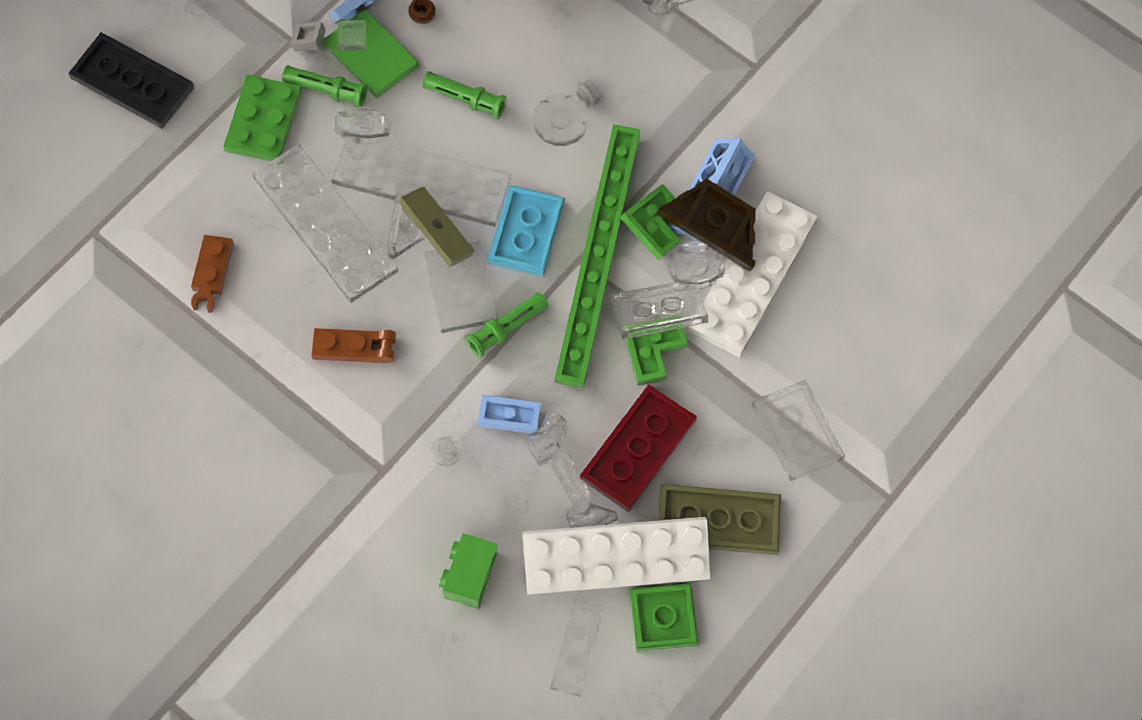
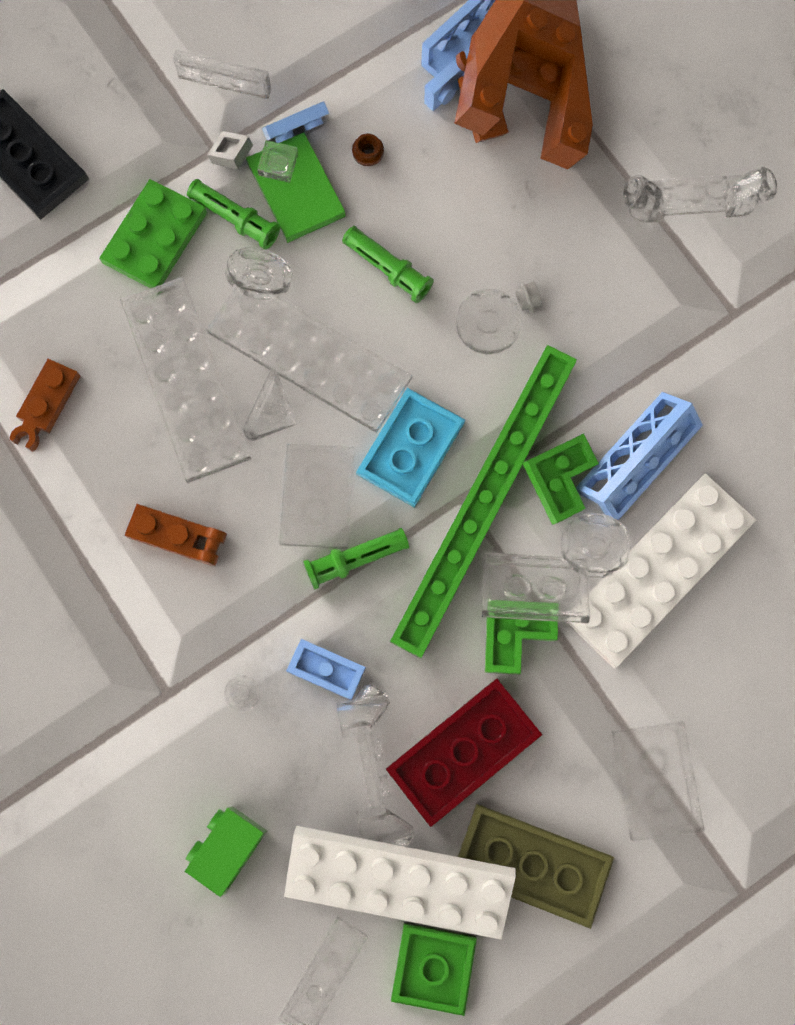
camera: 20 degrees right, 10 degrees up
(436, 226) = (298, 402): olive tile -> none
(715, 220) = (633, 500): dark brown wing -> none

